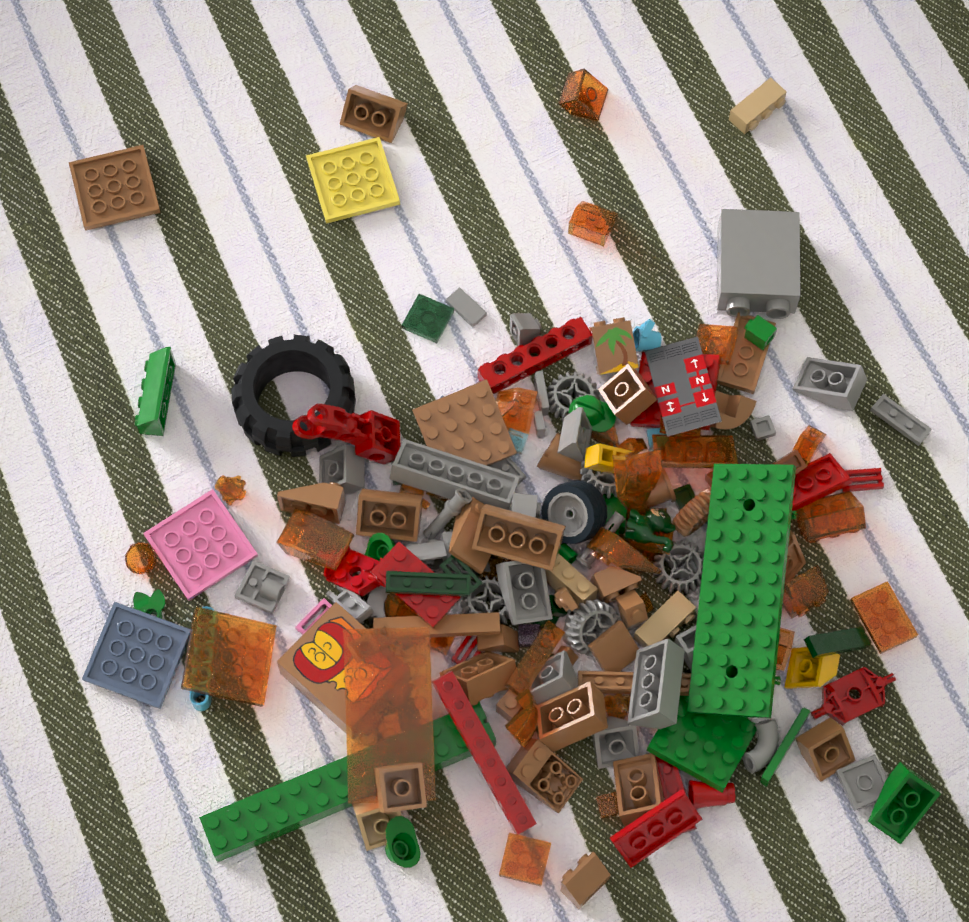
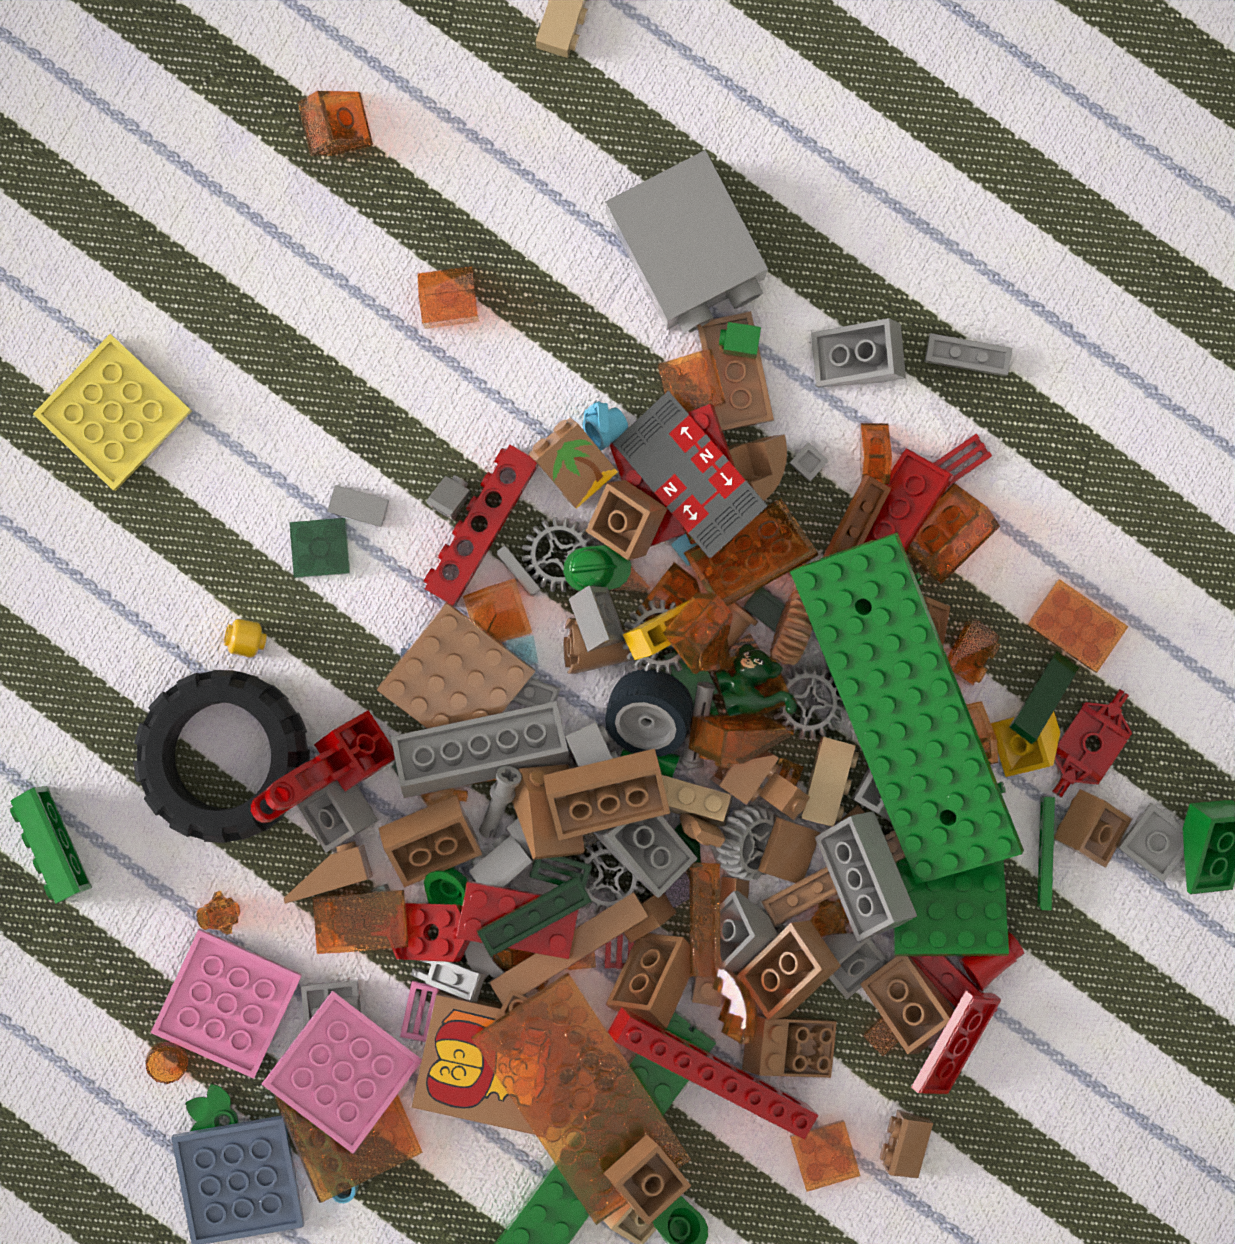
camera: 30 degrees left, 20 degrees up
(246, 617) = (342, 1072): none -> bright pink plate
(349, 341) = (244, 638): none -> yellow head
(373, 113) = (80, 302): medium nougat slope -> none
(539, 424) = (538, 613): light grey tile -> none
(765, 747) = (1023, 873): light grey cylinder -> none

